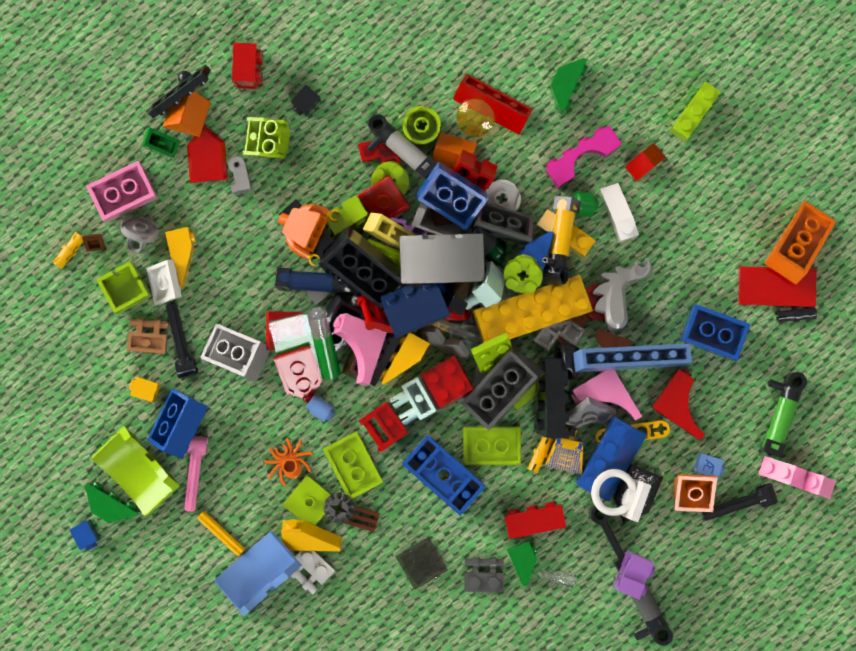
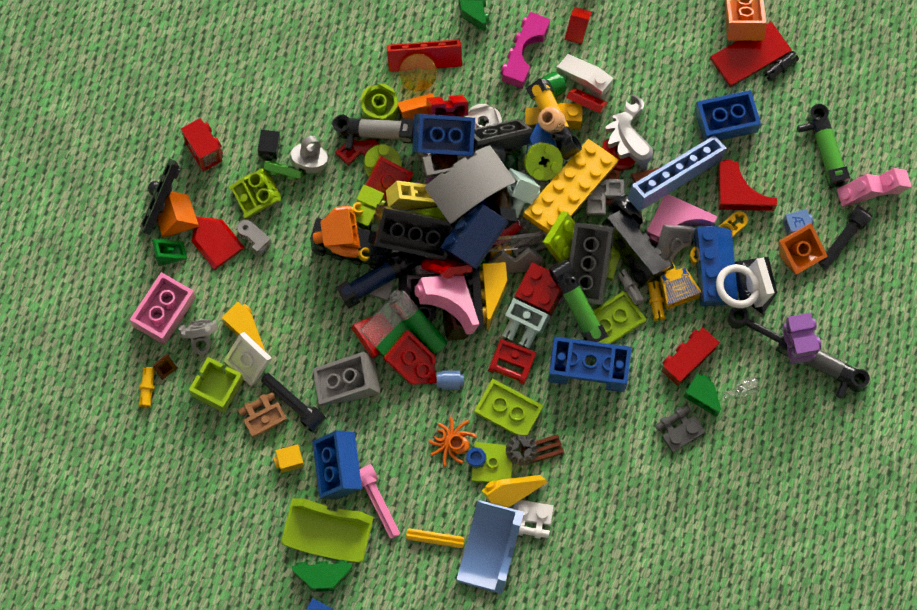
camera: 35 degrees left, 15 degrees down
(297, 490) = (476, 457): none -> blue tile
(303, 131) = (275, 168): none -> bright green plate
(331, 135) = (309, 156): none -> light grey tile
(421, 563) = (621, 451): clear smoke plate -> none
(467, 418) = (564, 277): none -> piece
(526, 428) = (630, 287): none -> light grey axle
(553, 244) = (551, 120): none -> light nougat head
(602, 239) = (587, 100): none -> red tile

